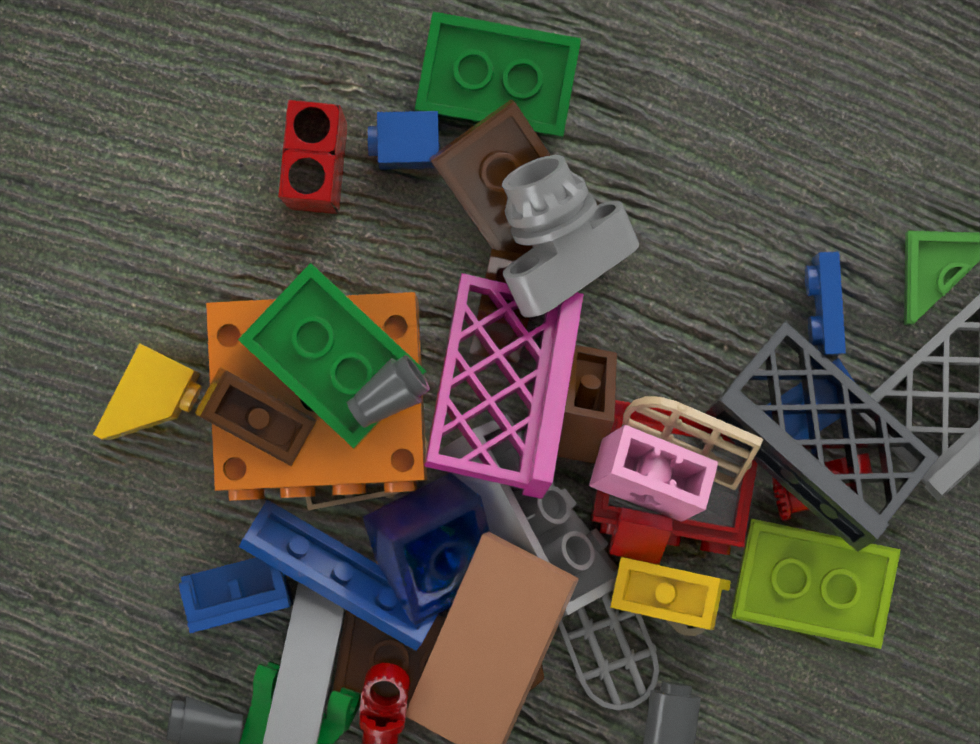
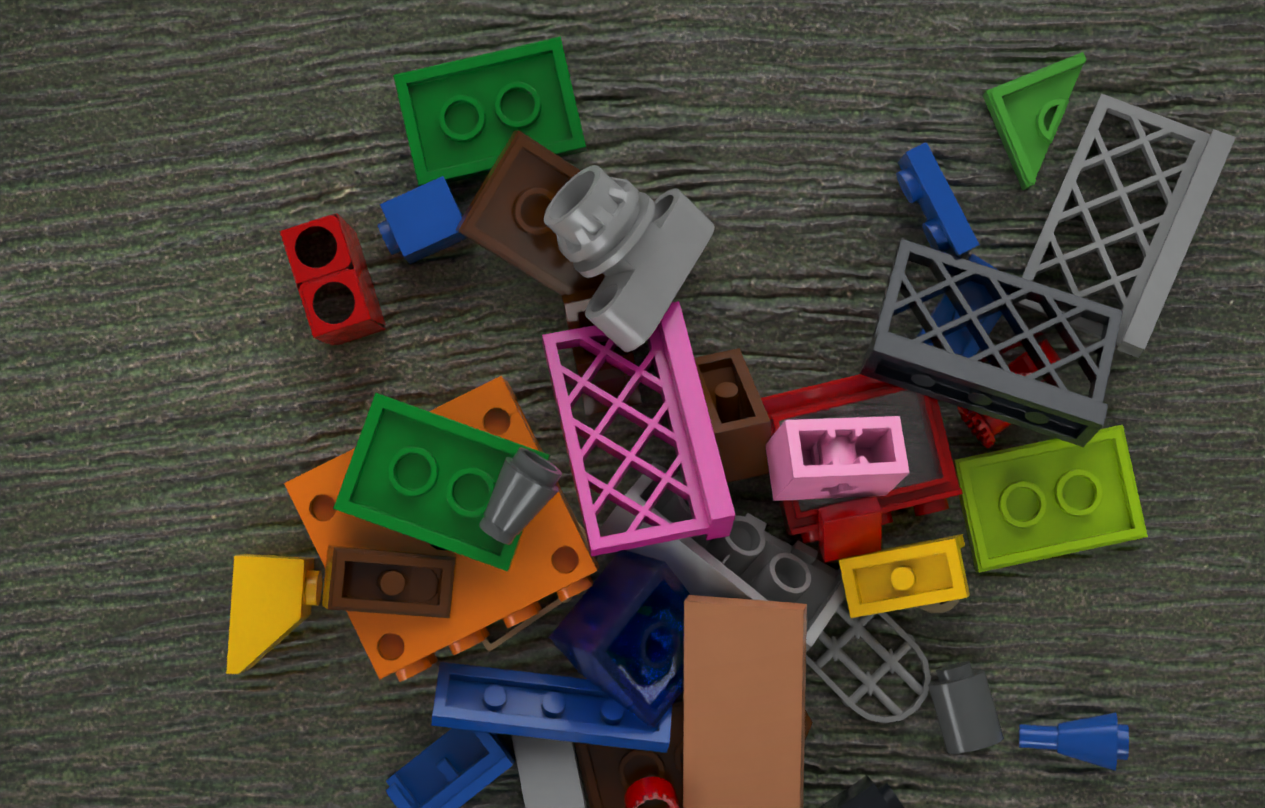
camera: 25 degrees left, 0 degrees up
(643, 406) = (794, 391): tan window -> none

